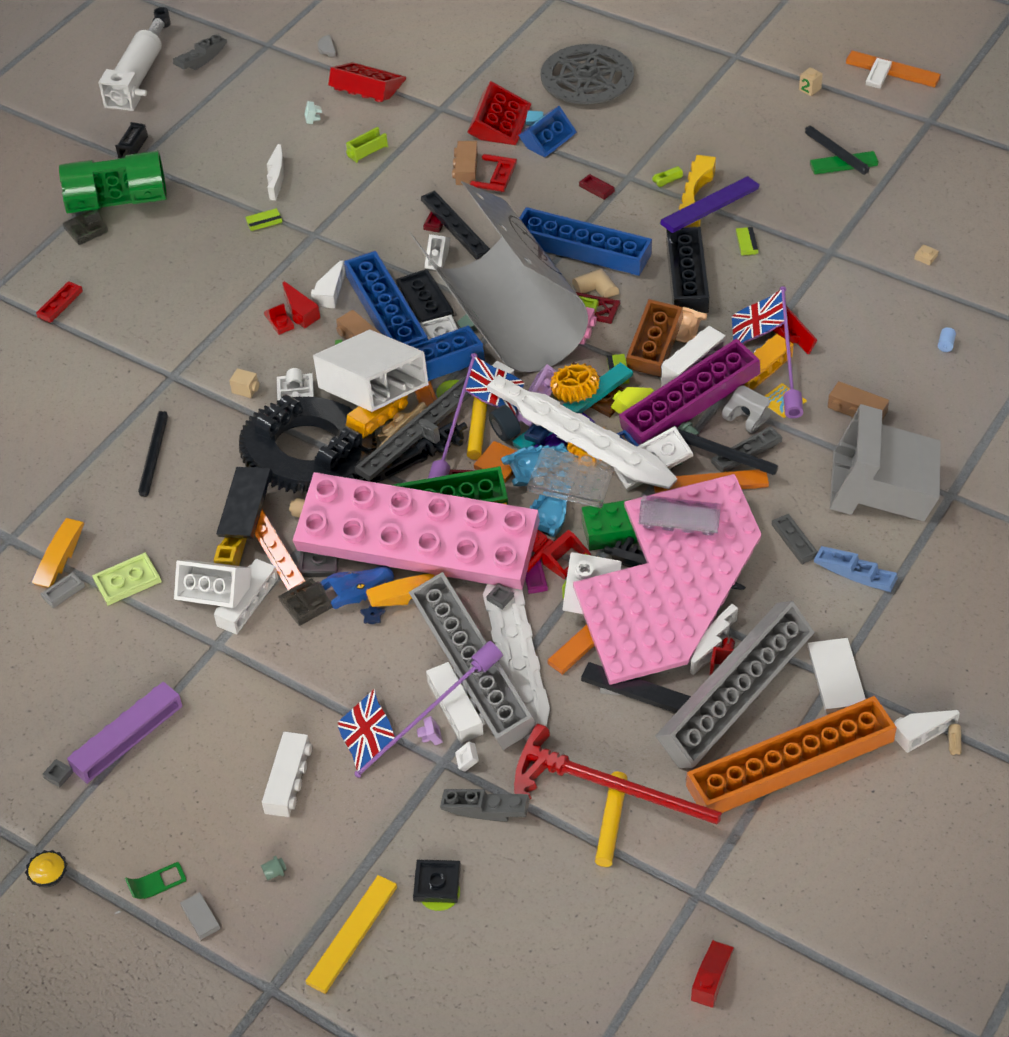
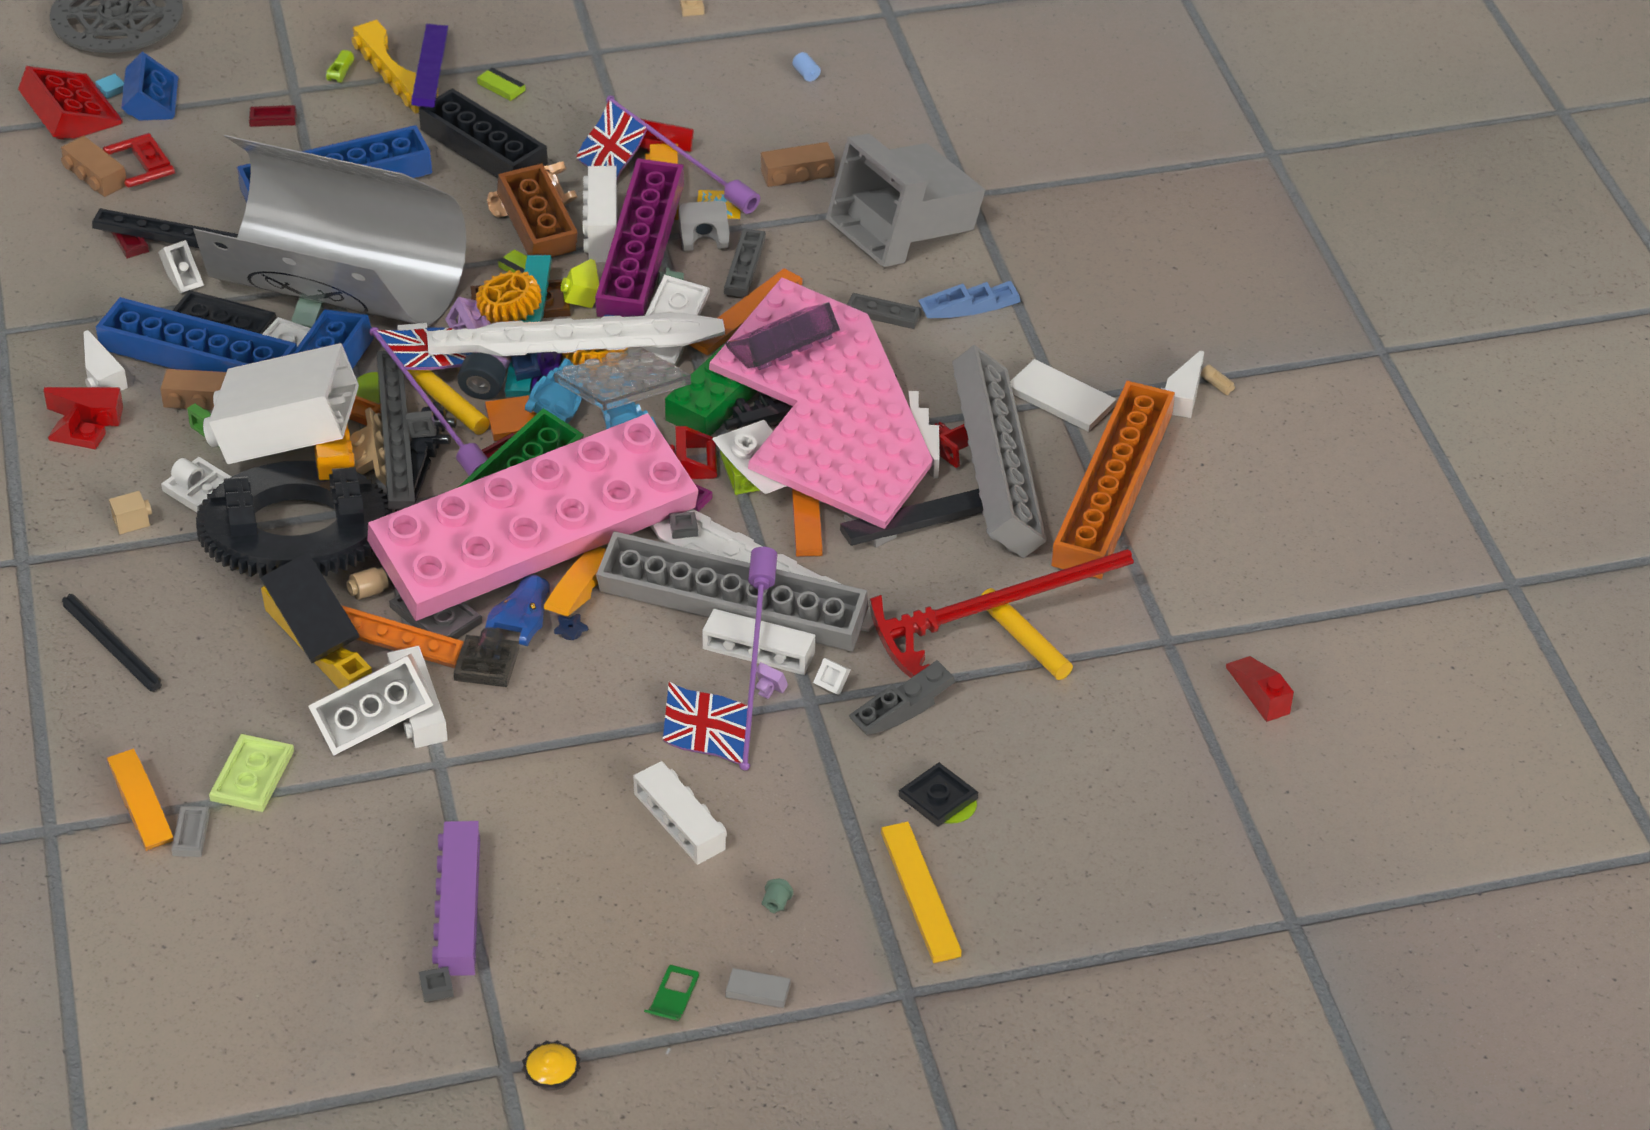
camera: 50 degrees left, 5 degrees down
(729, 453) = (744, 270): black axle -> none

